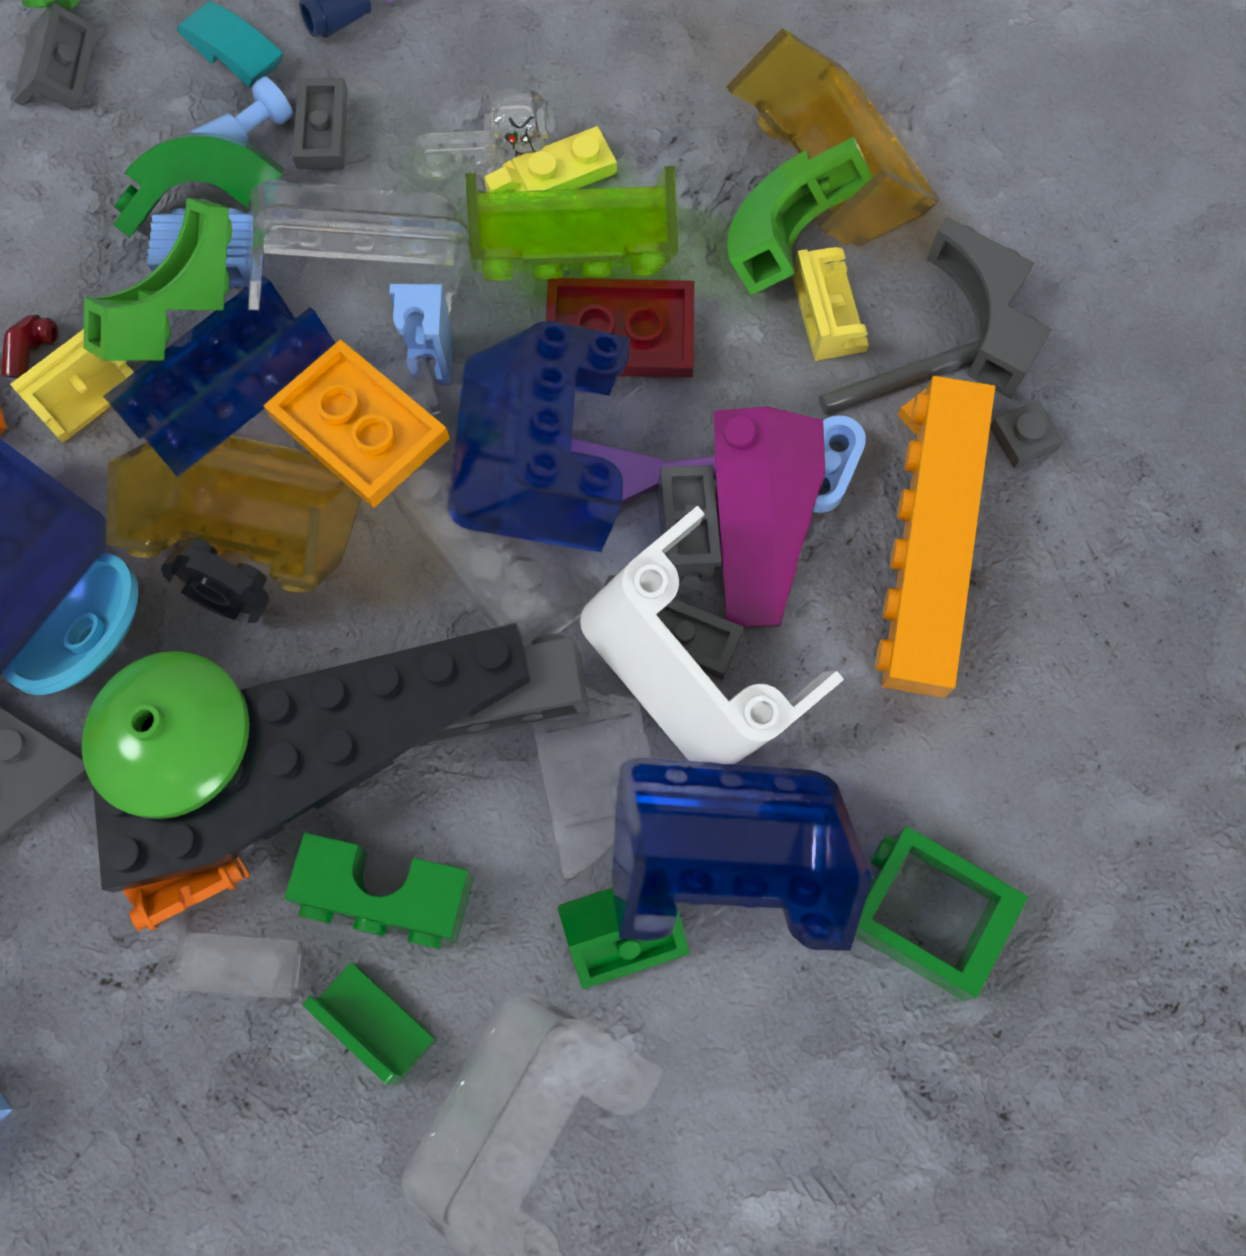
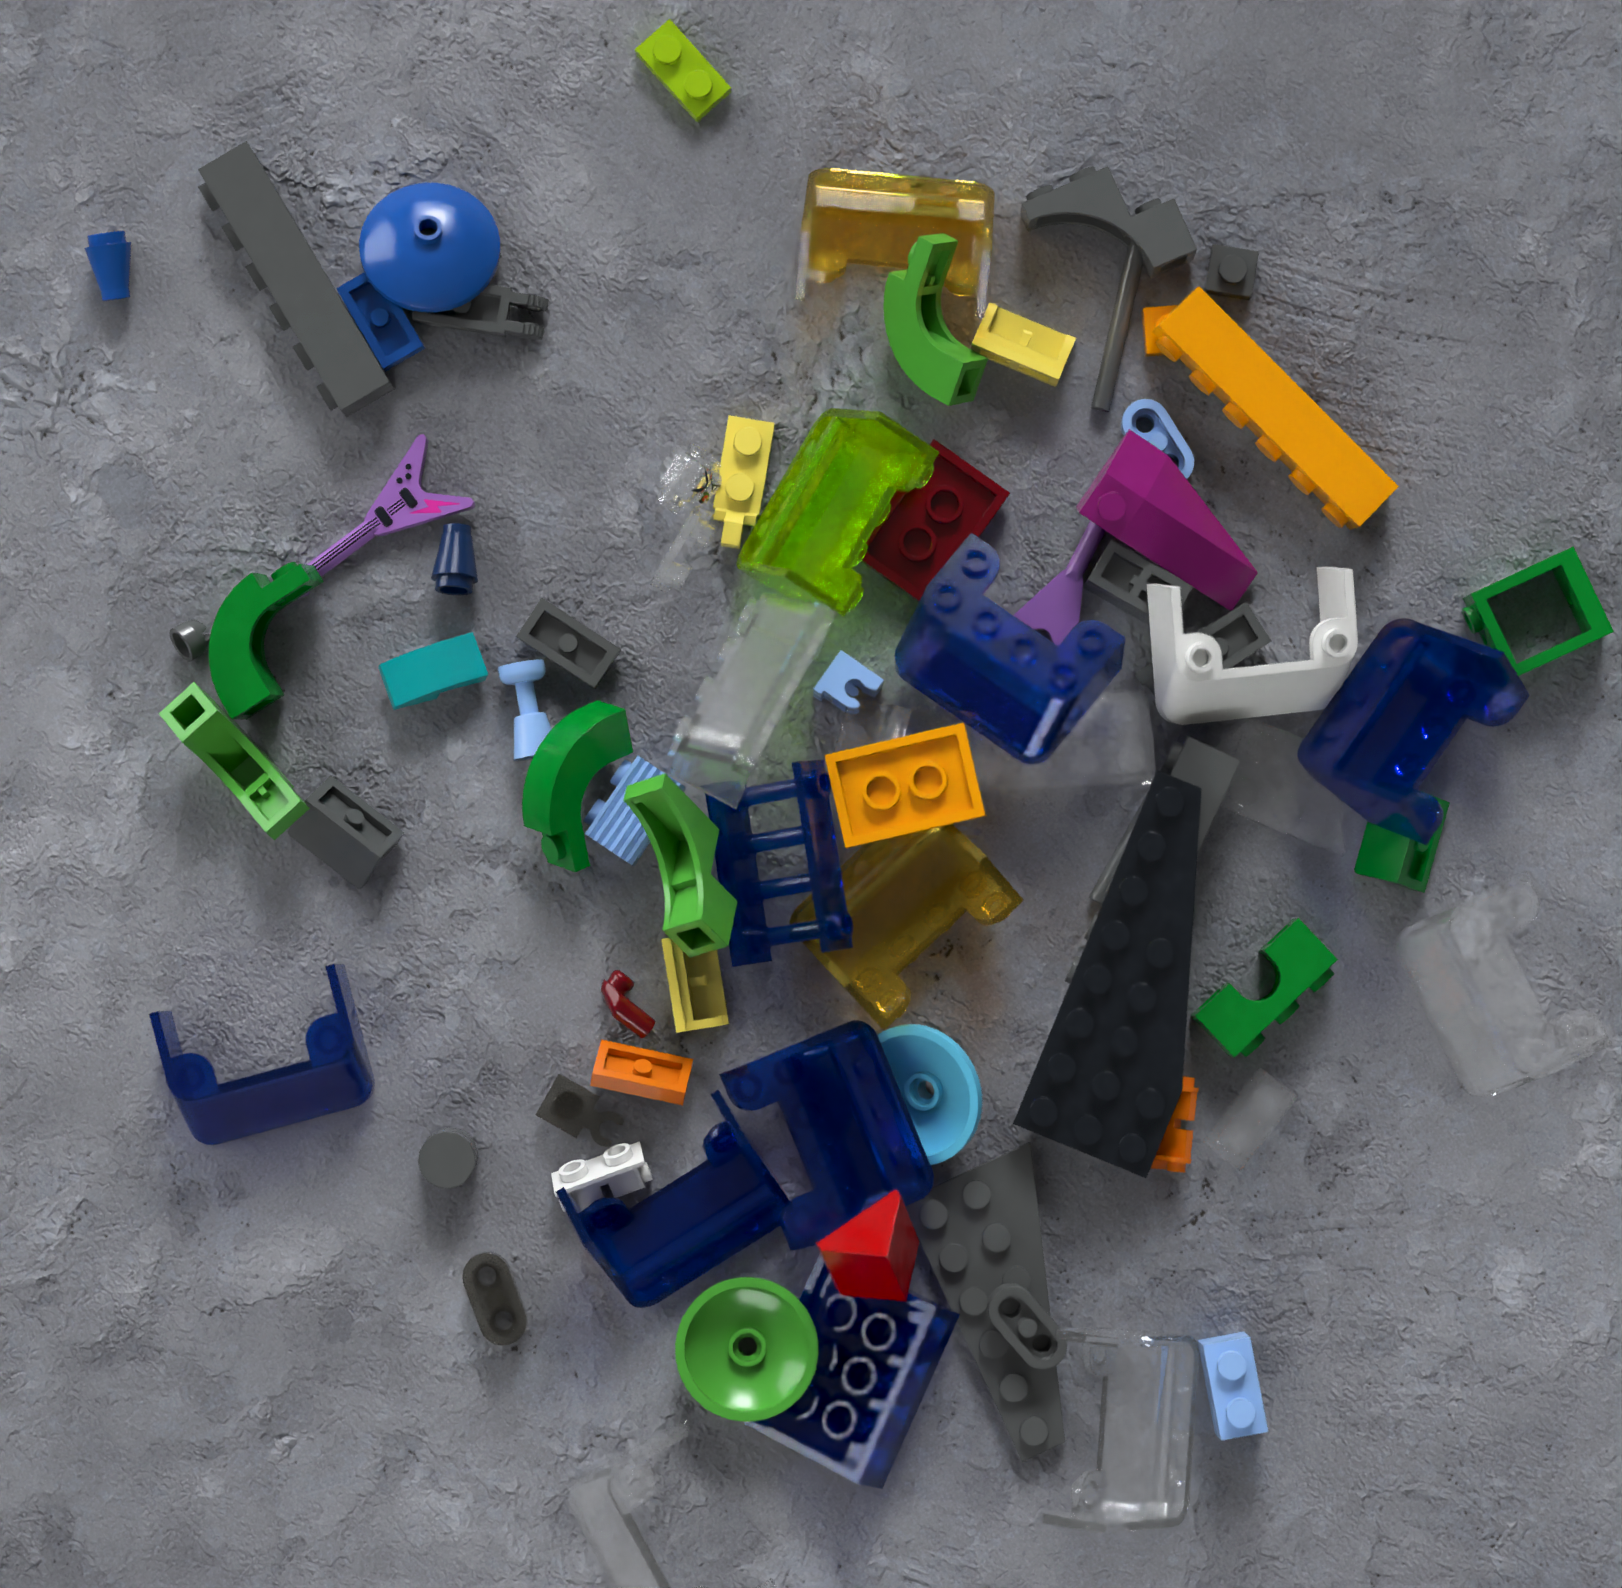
camera: 55 degrees left, 15 degrees up
(188, 750) = (1072, 1034): bright green dish -> none
(216, 582) = (947, 973): black plate -> none
(371, 1024) = (1352, 1051): green panel -> none

